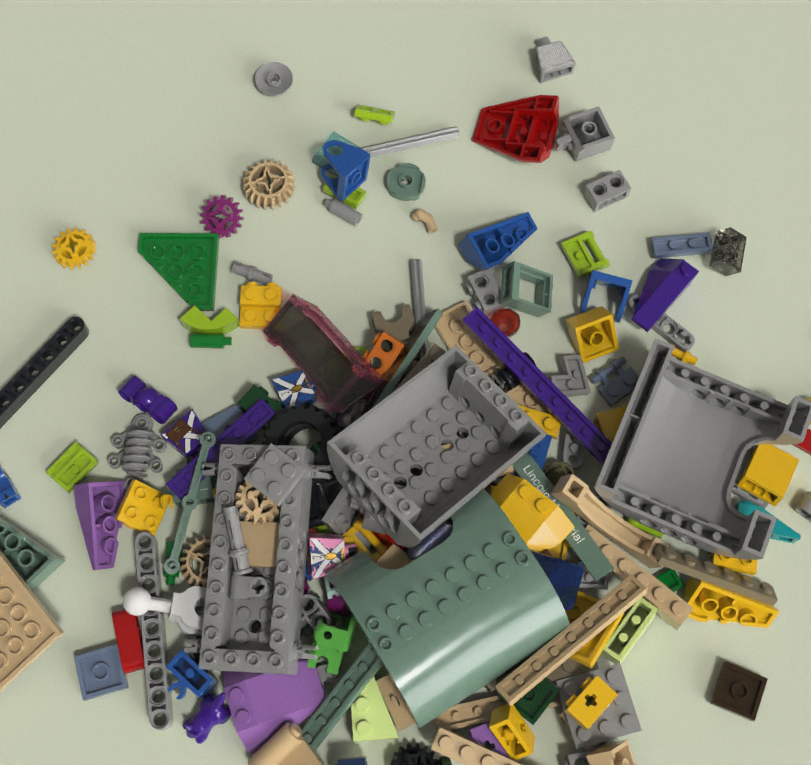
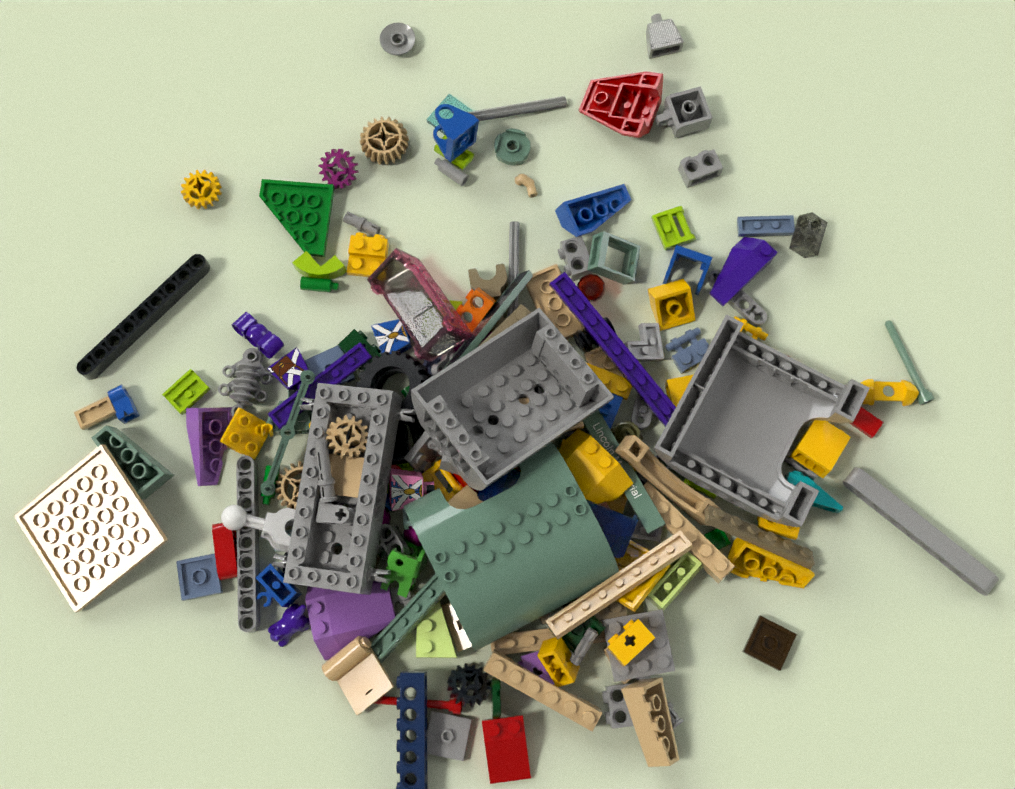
camera: 10 degrees right, 5 degrees up
(275, 474) = (363, 415): light grey plate -> none
(366, 113) = (485, 78): lime plate -> none
(538, 712) = (583, 646): none -> light grey axle

